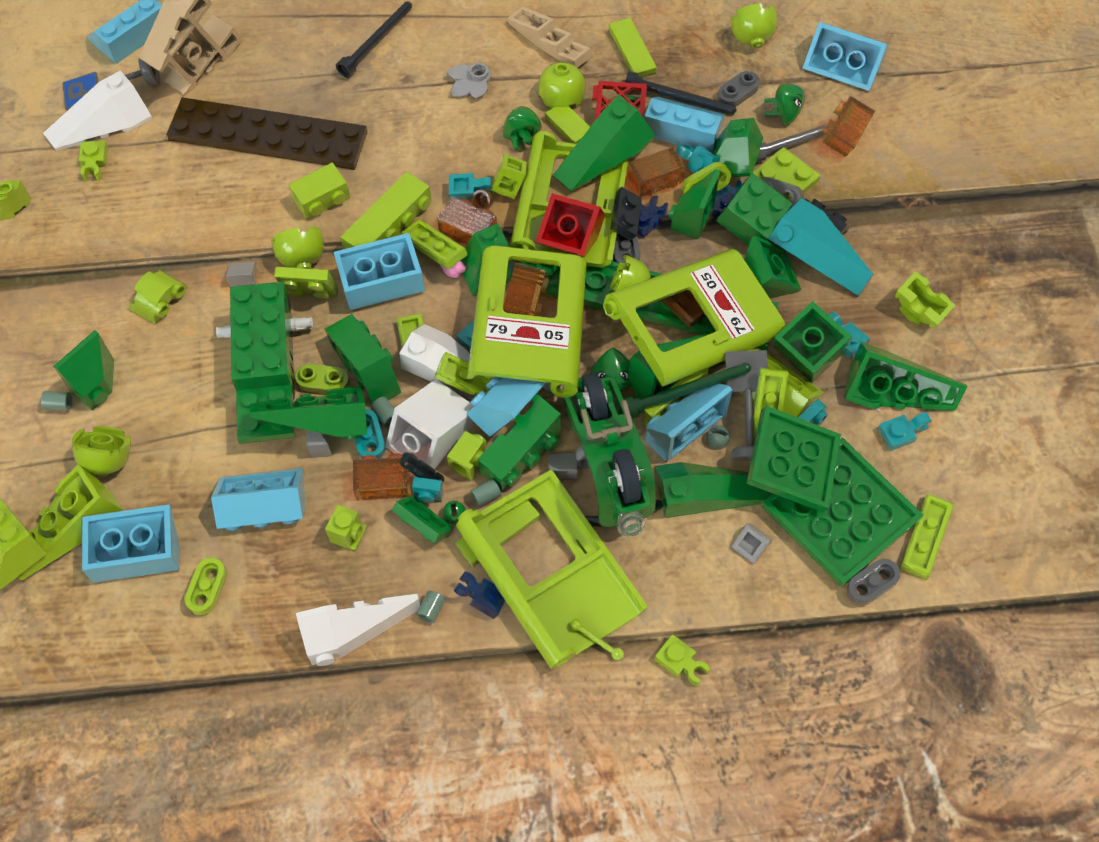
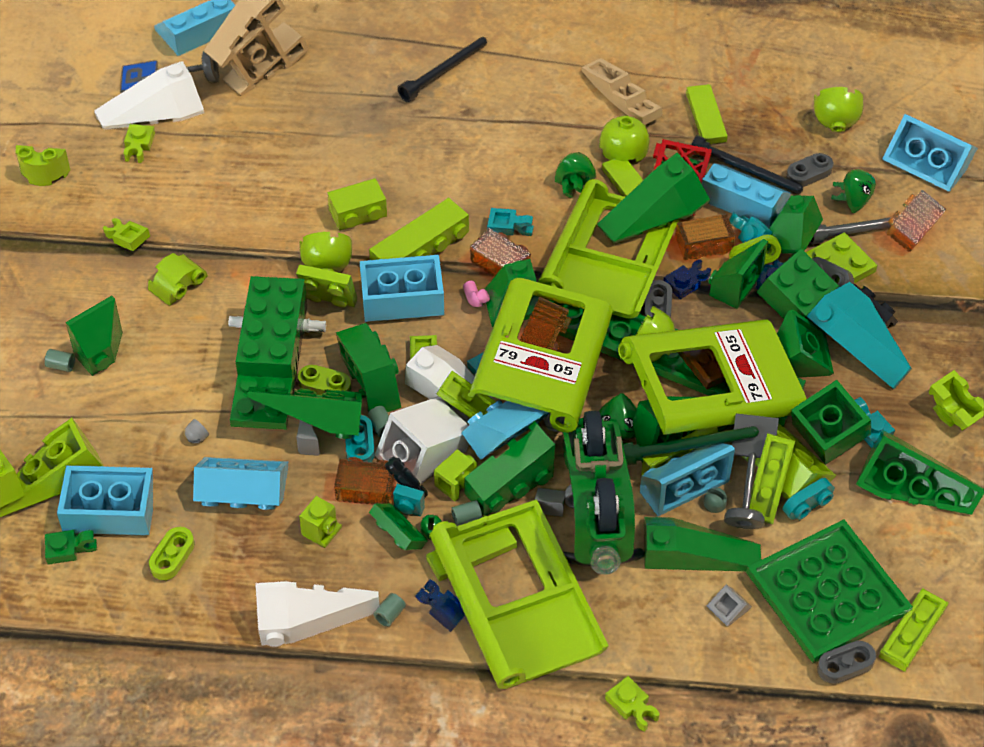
camera: 10 degrees right, 10 degrees down
(98, 596) = (65, 545): none -> green plate
(100, 259) = (128, 235): none -> lime plate
(101, 450) = (95, 411): lime cylinder -> none
(205, 454) = (195, 432): none -> light grey hinge
(241, 274) = (264, 268): light grey slope -> none
(267, 133) = (316, 142): dark brown plate -> none
(435, 244) = (464, 271): lime tile -> none
(469, 80) = (531, 121): light grey plate -> none
(483, 204) = (521, 230): reddish brown hinge -> none
(509, 176) = (551, 218): lime brick -> none
(570, 225) = (603, 271): red slope -> none
(616, 653) = (567, 685): lime hinge -> none
(626, 213) = (664, 270): black plate -> none
(794, 459) = (786, 527): green plate -> none
(902, 432) = (908, 526): teal plate -> none

